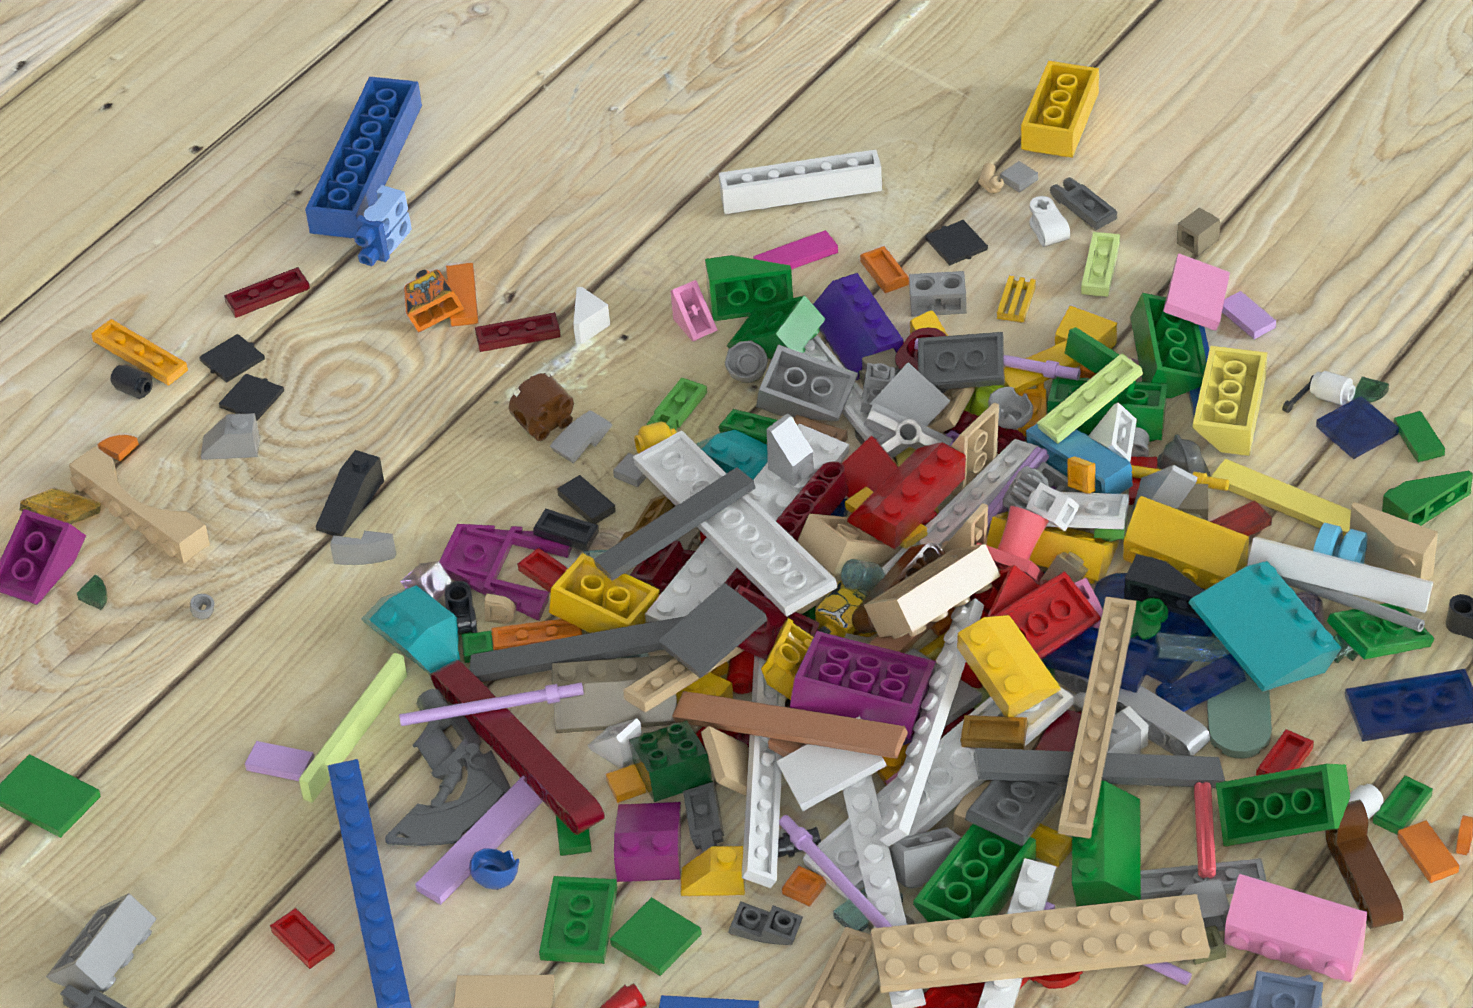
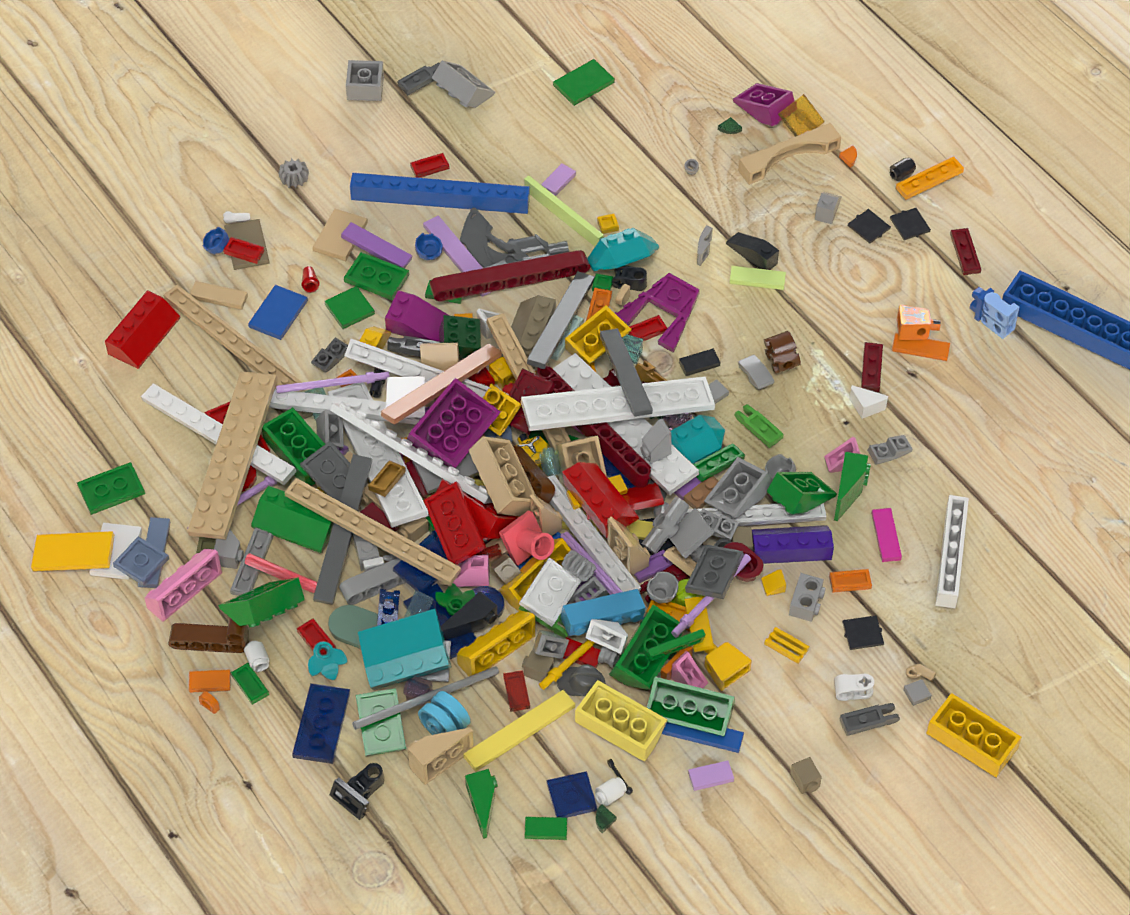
camera: 105 degrees right, 10 degrees up
(352, 676) = (608, 223): none -> yellow tile
(399, 482) = (757, 277): none -> yellowish green tile
(429, 577) = (656, 264): clear purple brick -> none
(515, 940) = (376, 245): none -> medium lavender tile
(551, 694) = (530, 291): lavender bar -> none
(566, 530) = (671, 340): black tile -> none
(651, 435) = (728, 403): yellow head -> none
(652, 281) = (893, 448): none -> light grey slope
(712, 630) = (523, 361): dark grey tile -> none
(1006, 664) = (419, 486): yellow slope -> none
(1052, 505) = (542, 559): white brick -> none
(1081, 474) = (578, 597): light orange tile -> none
(1089, 398) = (636, 620): yellowish green tile -> none
(1100, 264) = (798, 704): yellowish green plate -> none
(1196, 292) = (733, 740): bright pink tile -> none
(1314, 728) = (327, 663): none -> teal plate
(1343, 574) = (420, 702): white tile -> none

